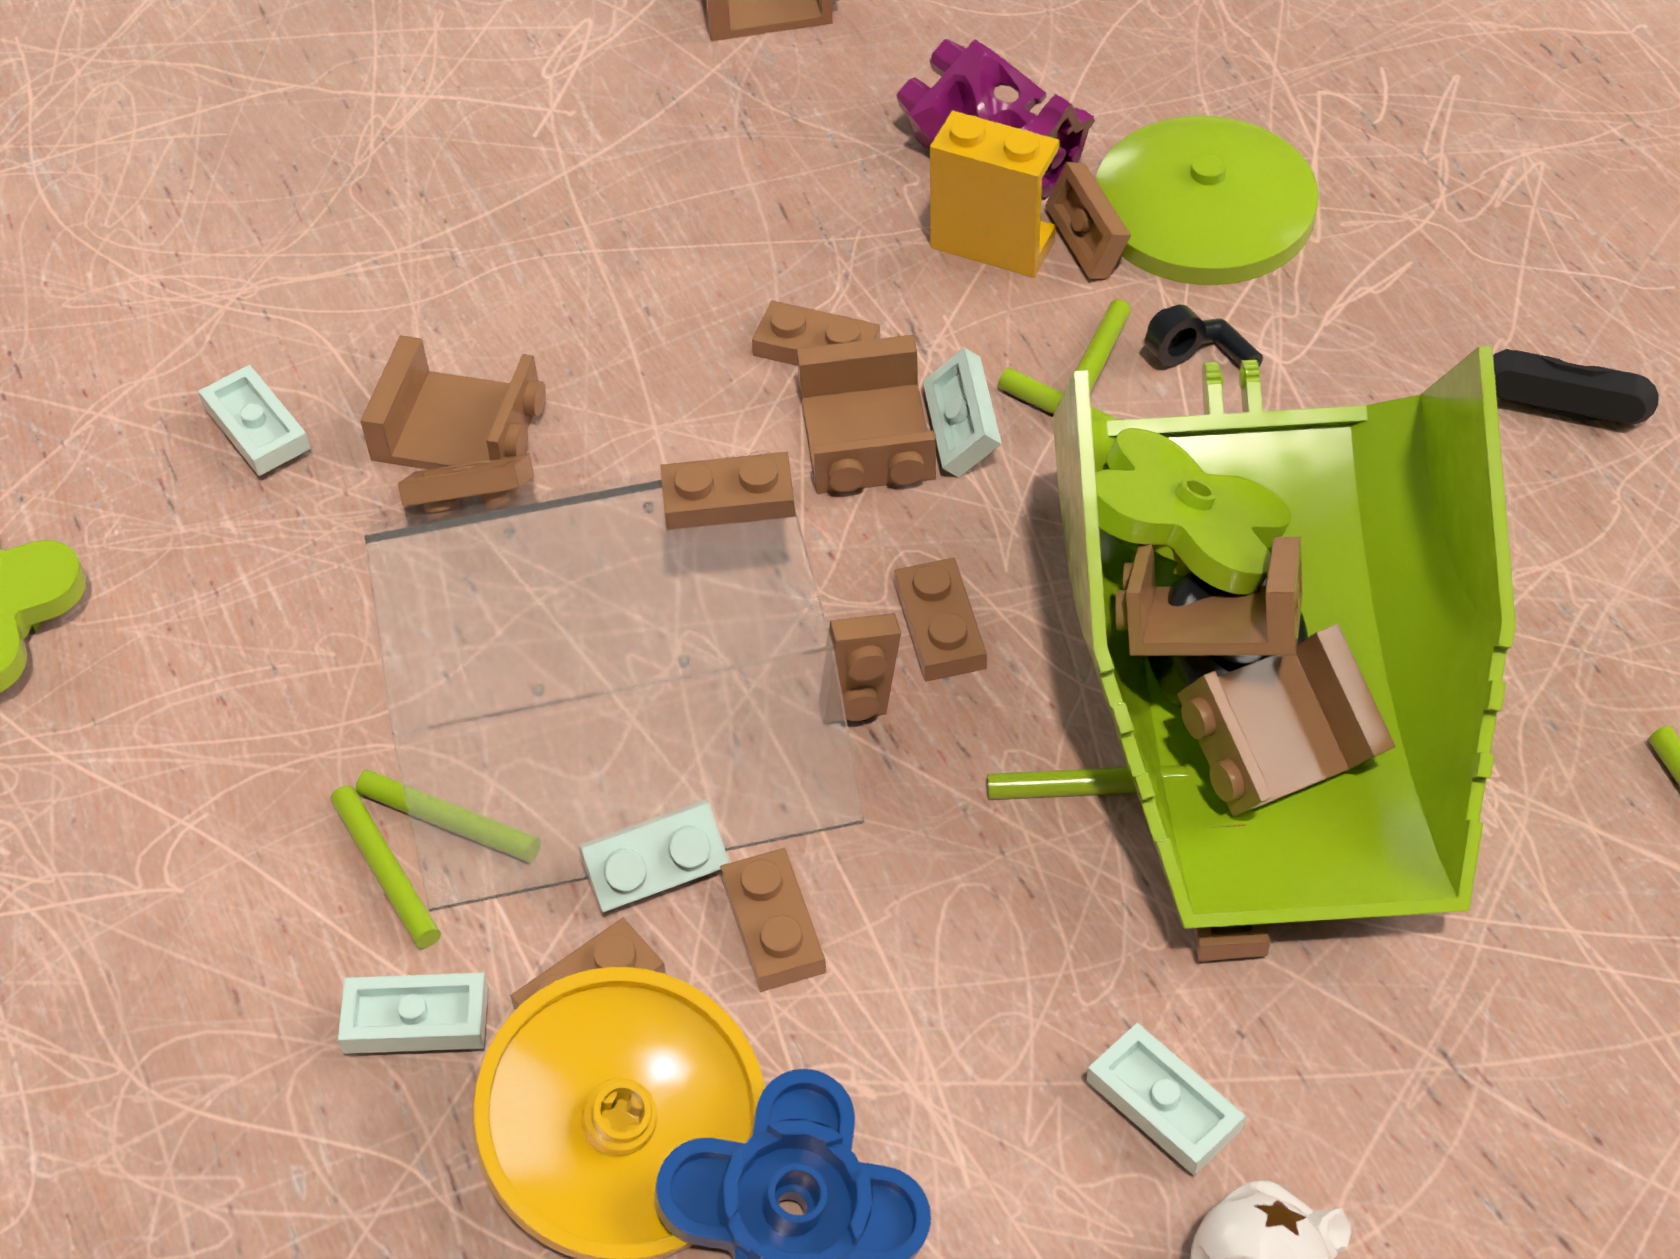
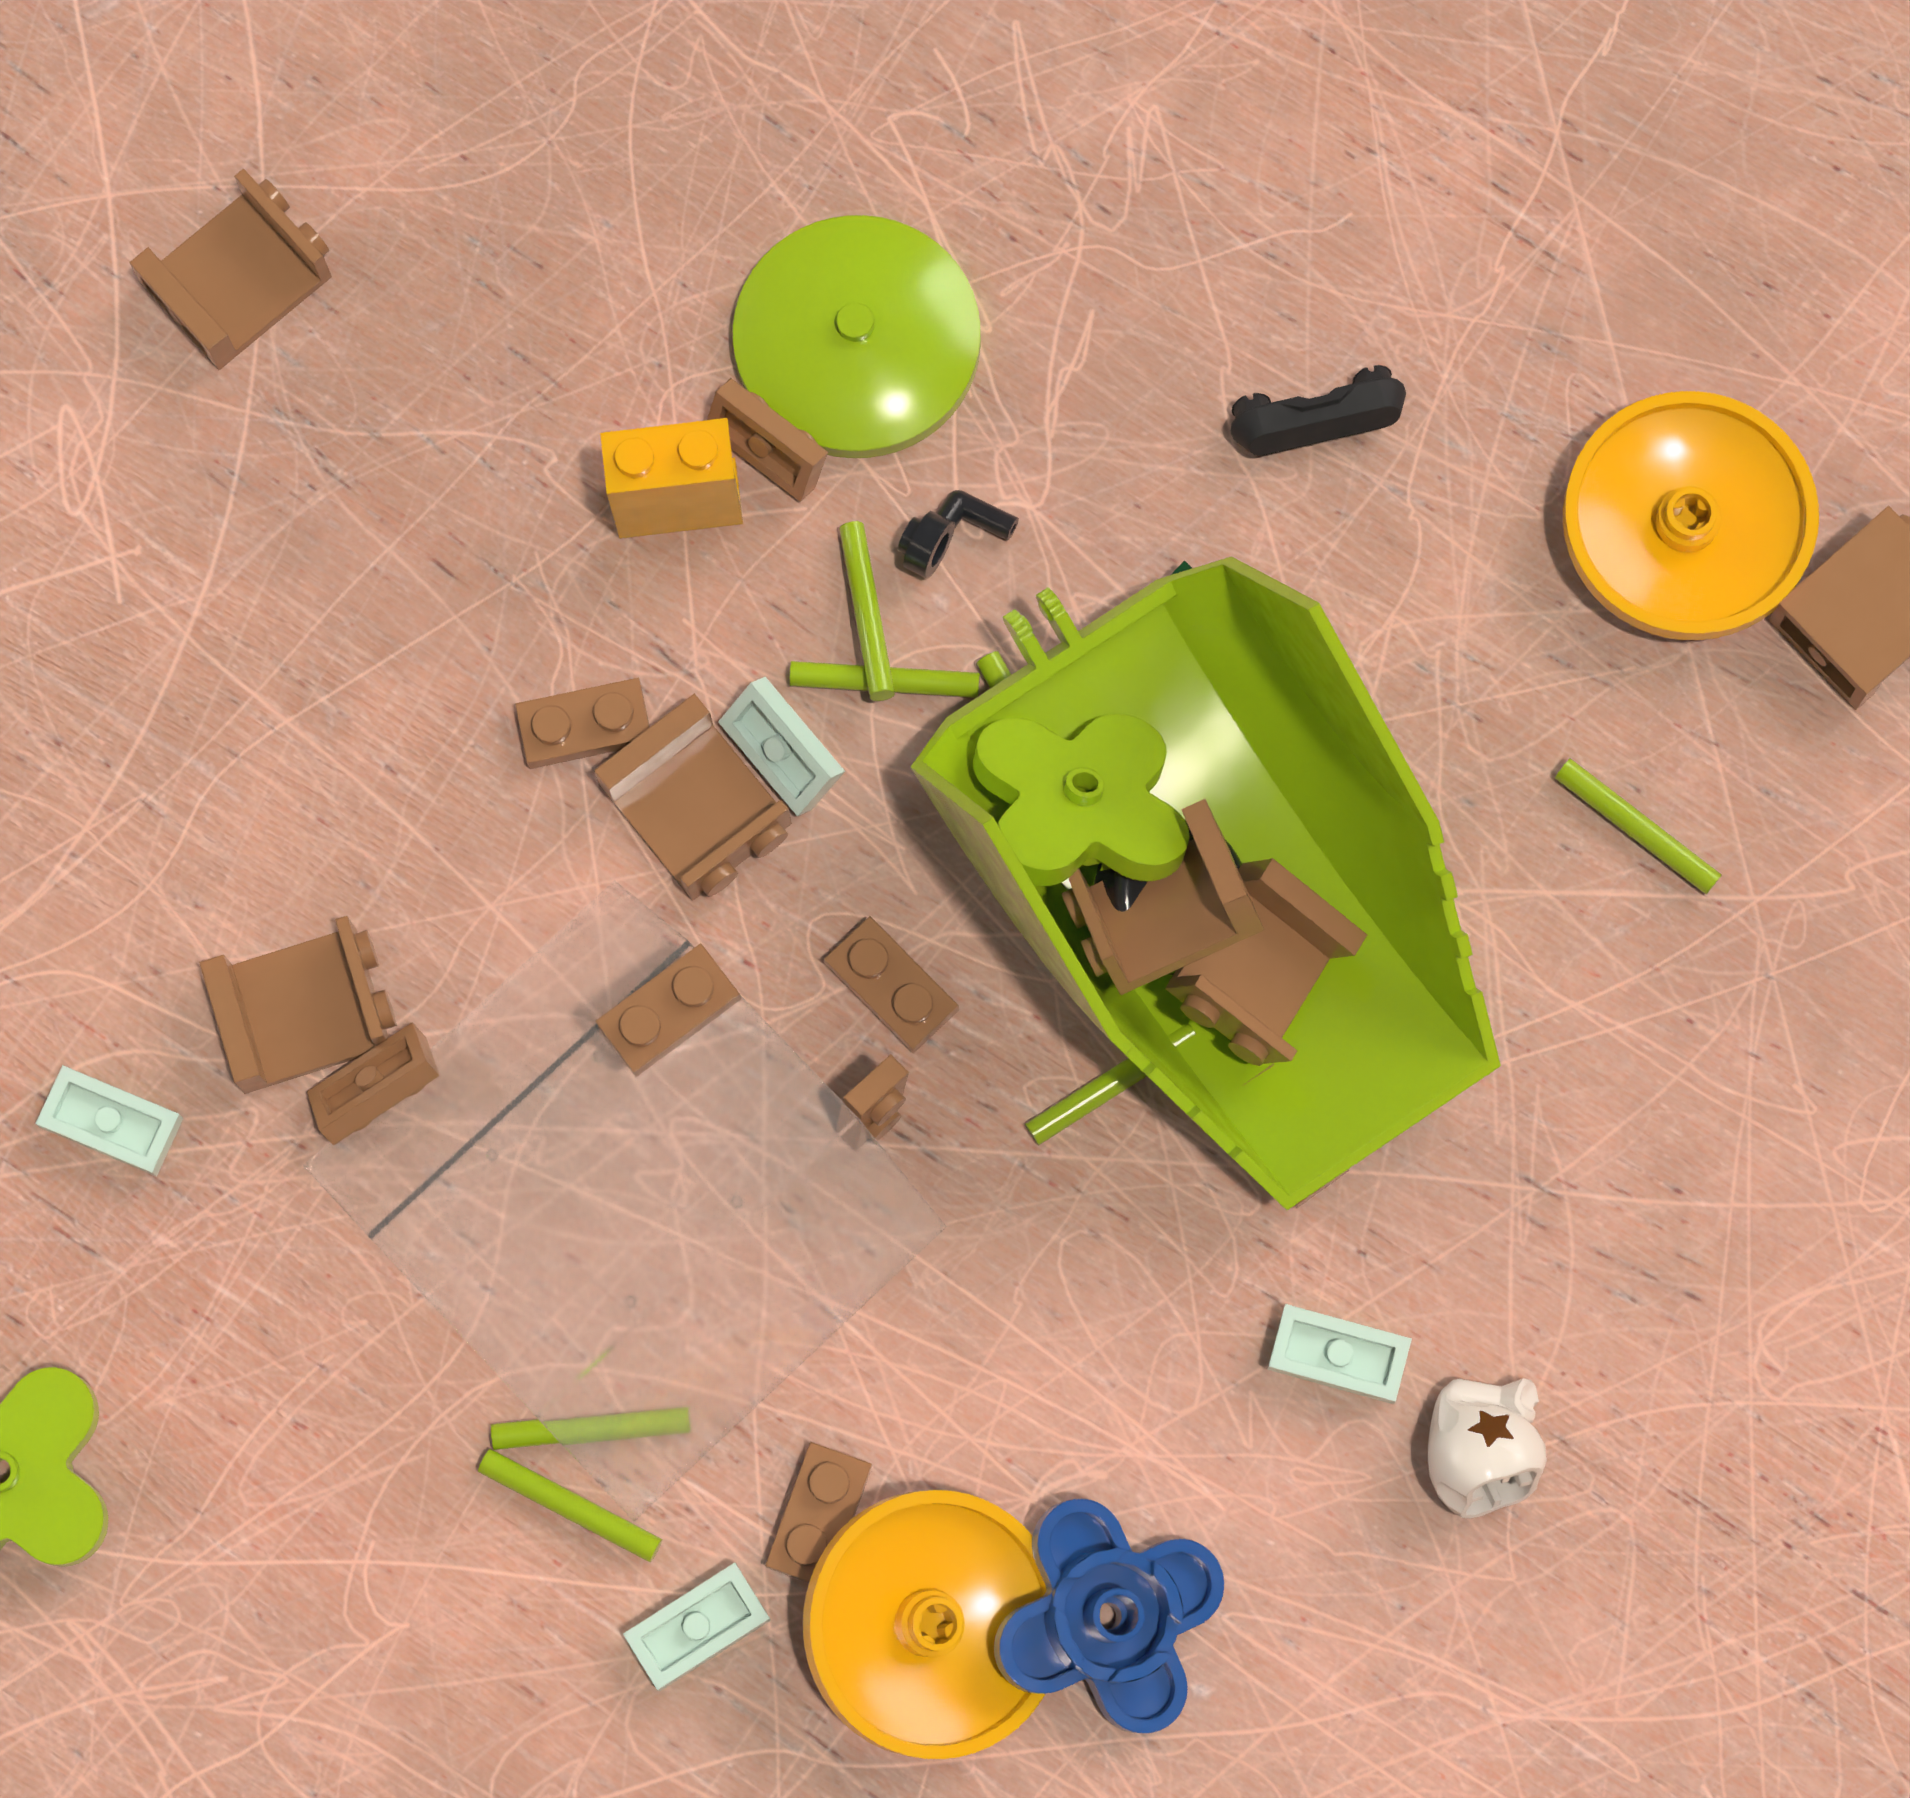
camera: 30 degrees left, 25 degrees up
(653, 855) = (800, 1371): light aqua plate -> none
(773, 919) = (930, 1367): medium nougat plate -> none
(969, 87) = (567, 352): magenta hips -> none

